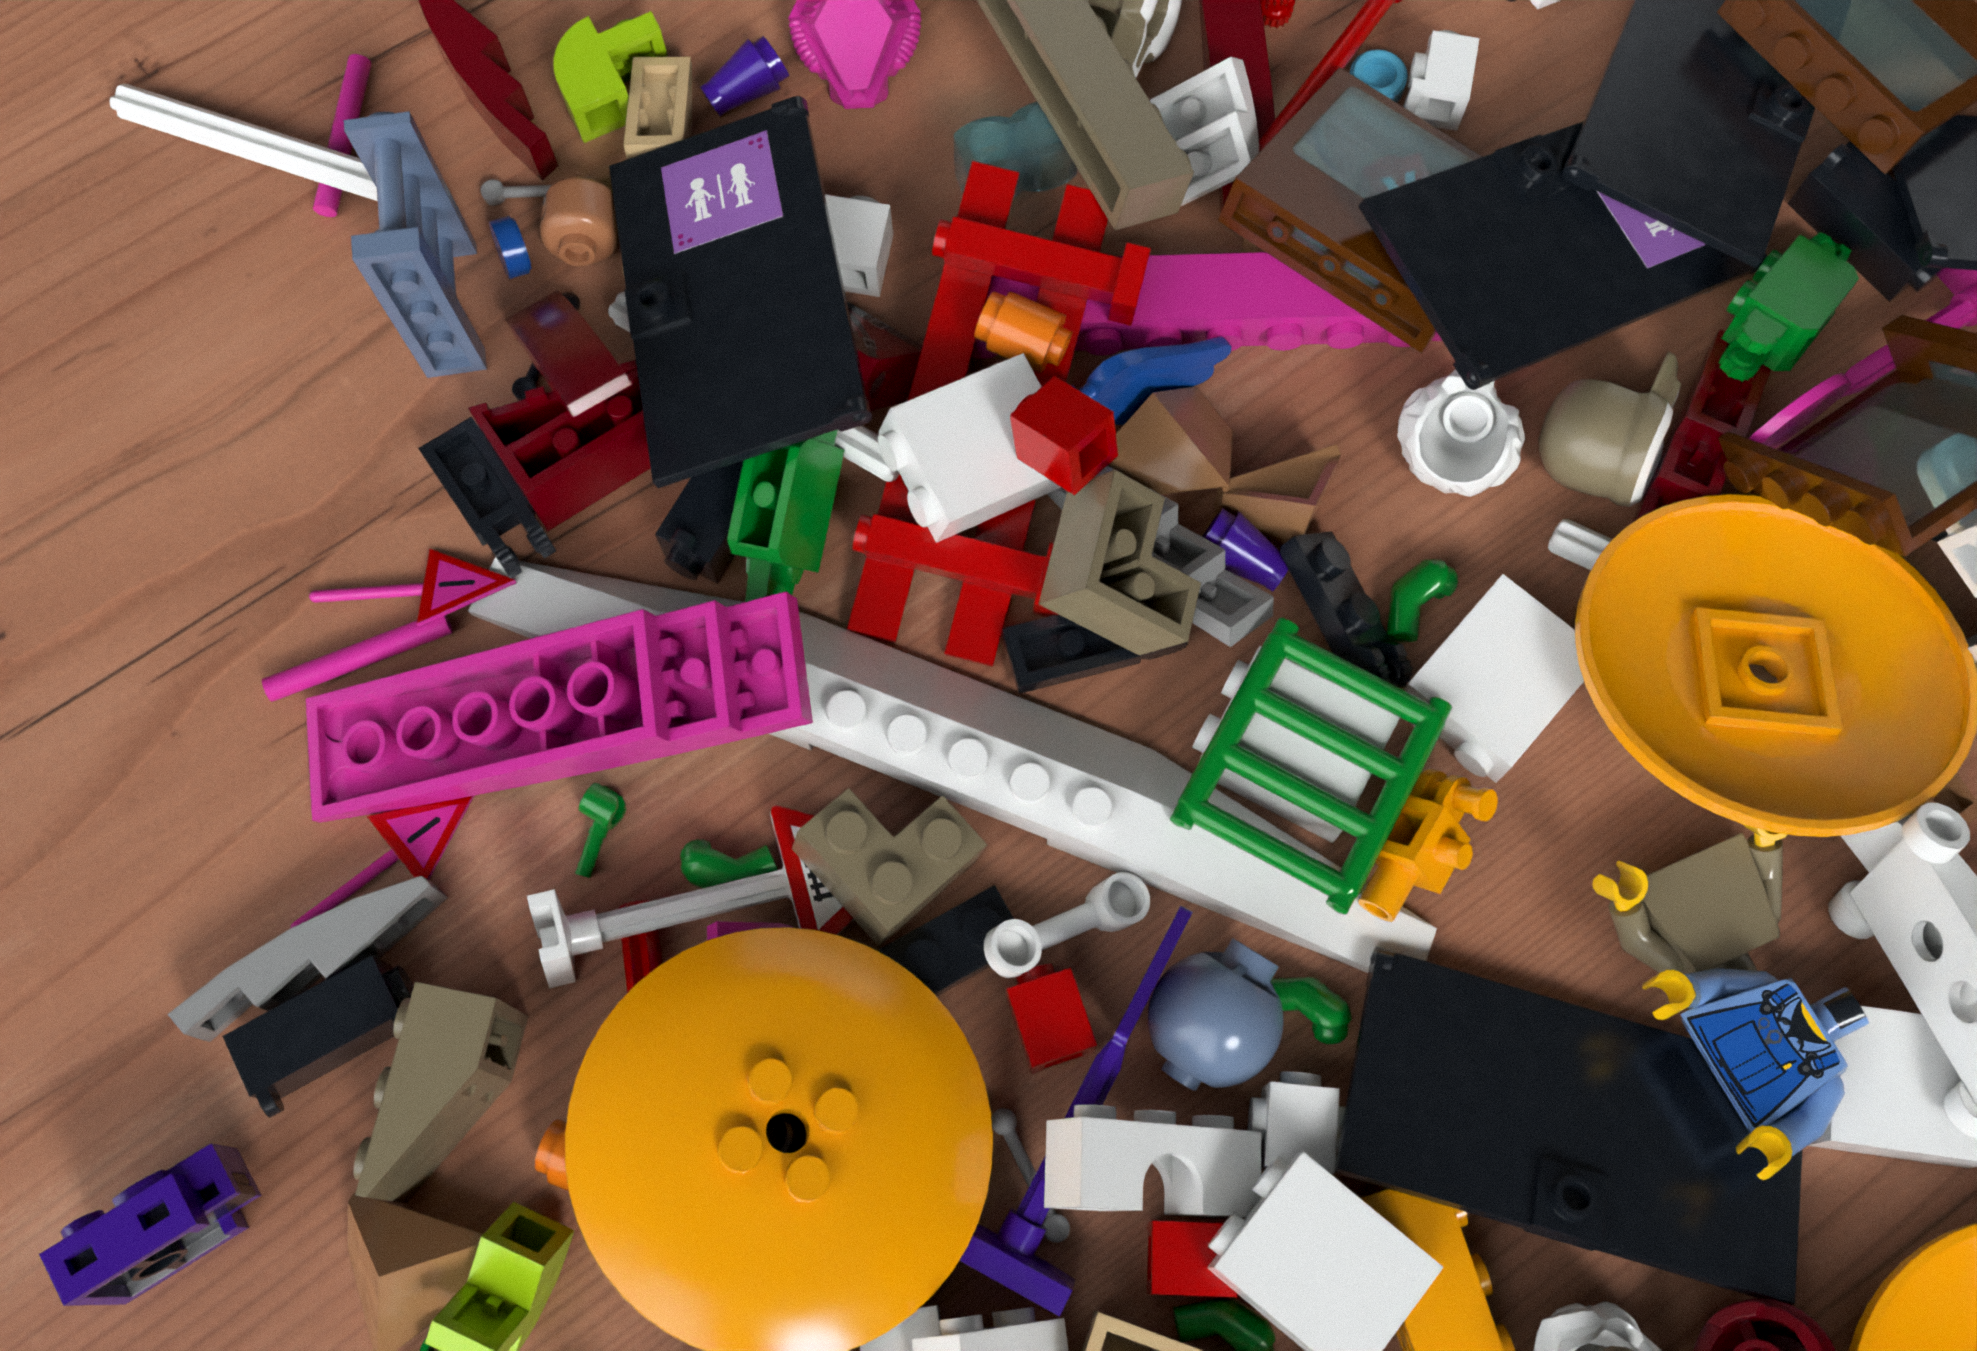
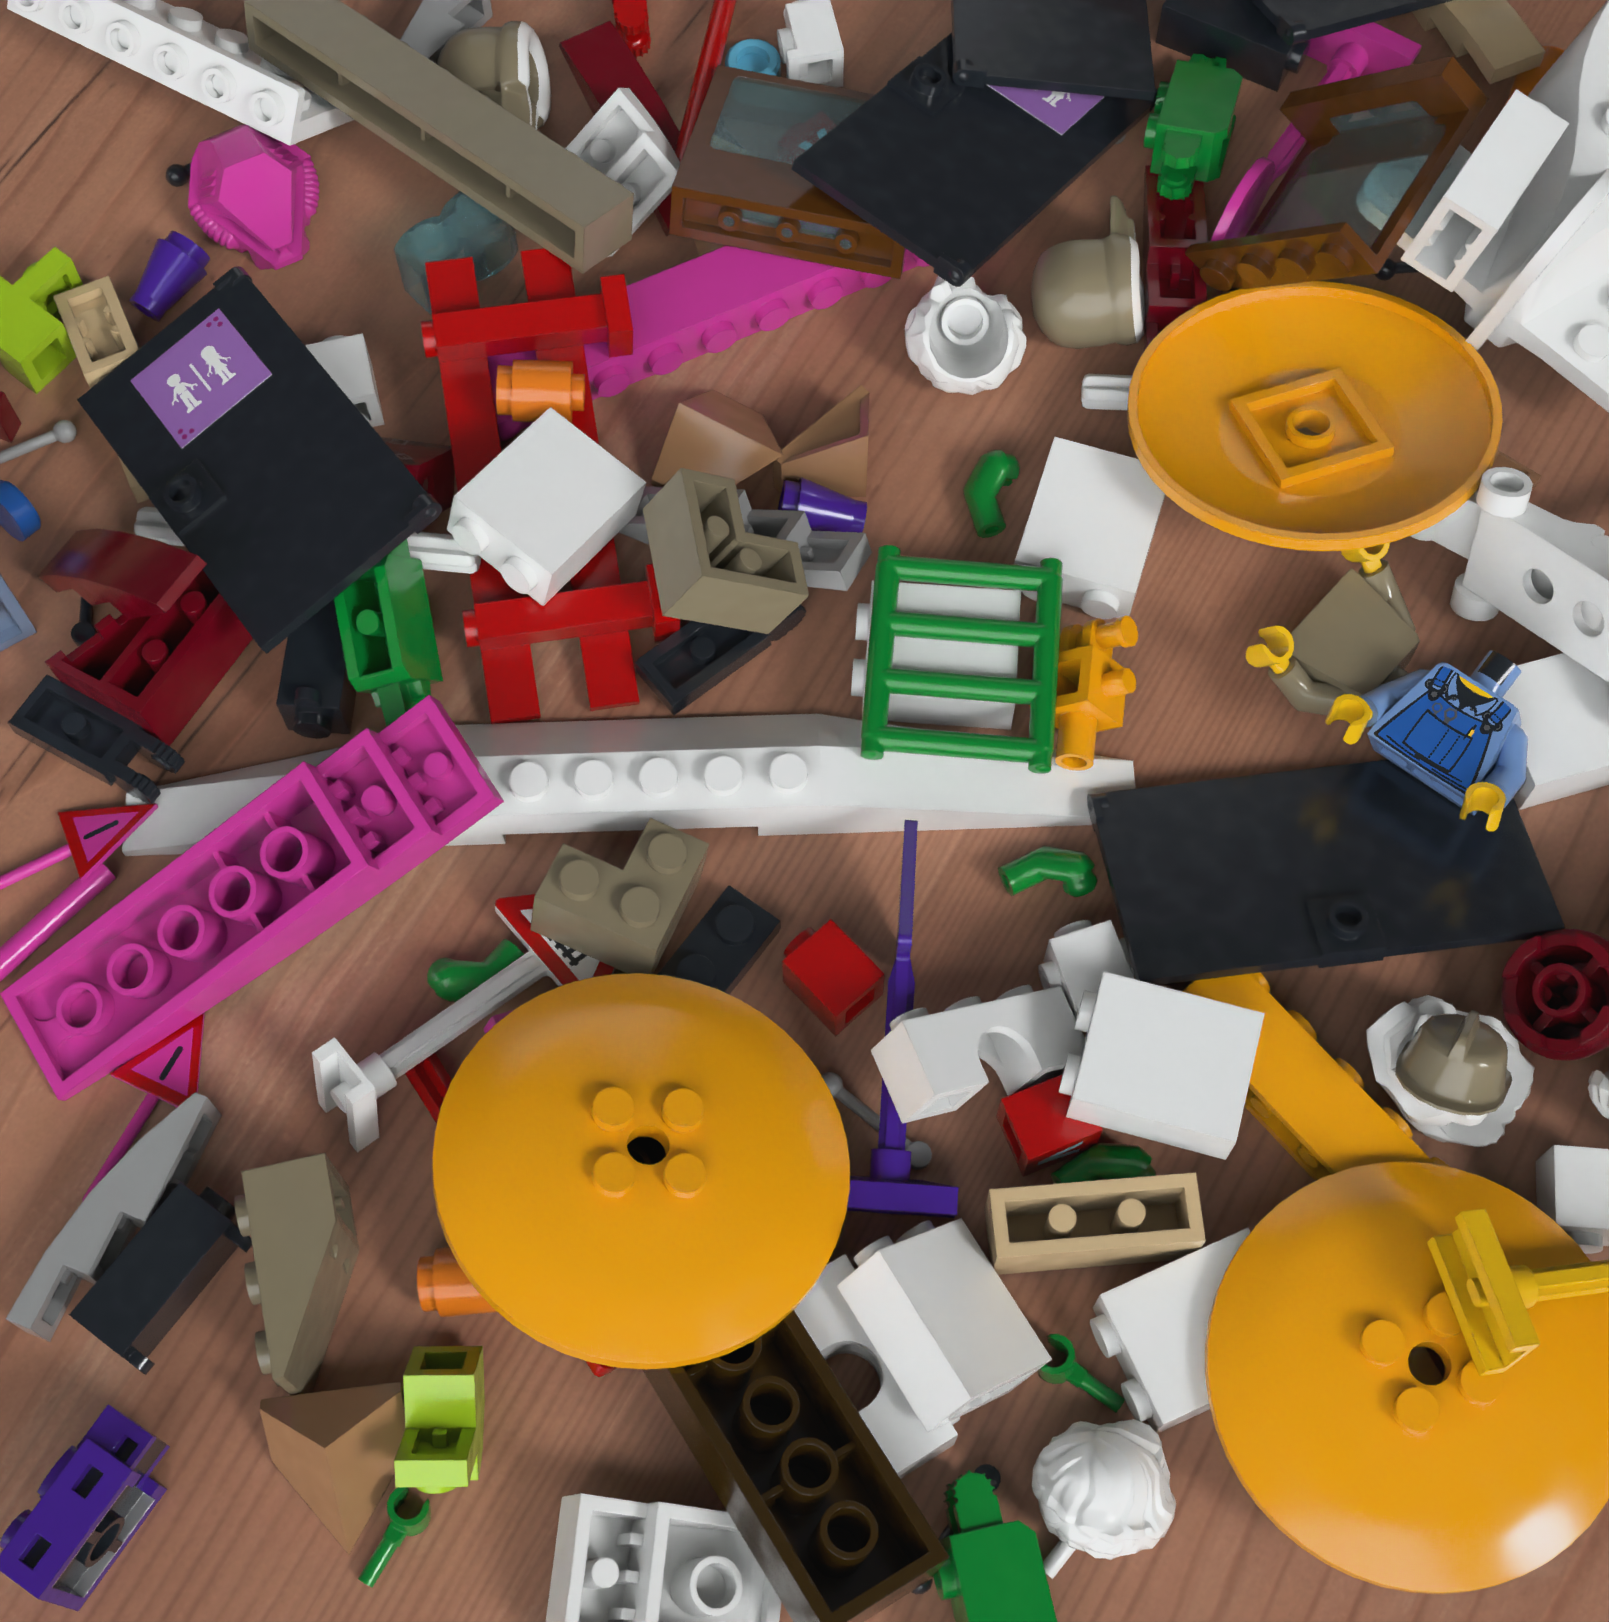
camera: 25 degrees left, 5 degrees down
(579, 219) = (70, 456): nougat head -> none
(606, 811) = (336, 970): green hand -> none
(1064, 435) = (622, 457): red brick -> none
(1109, 906) = (838, 864): white bar -> none
(1133, 375) = (653, 396): blue animal -> none
(1216, 1017) = (977, 908): sand blue brick -> none
(1342, 607) = (923, 521): black hinge -> none

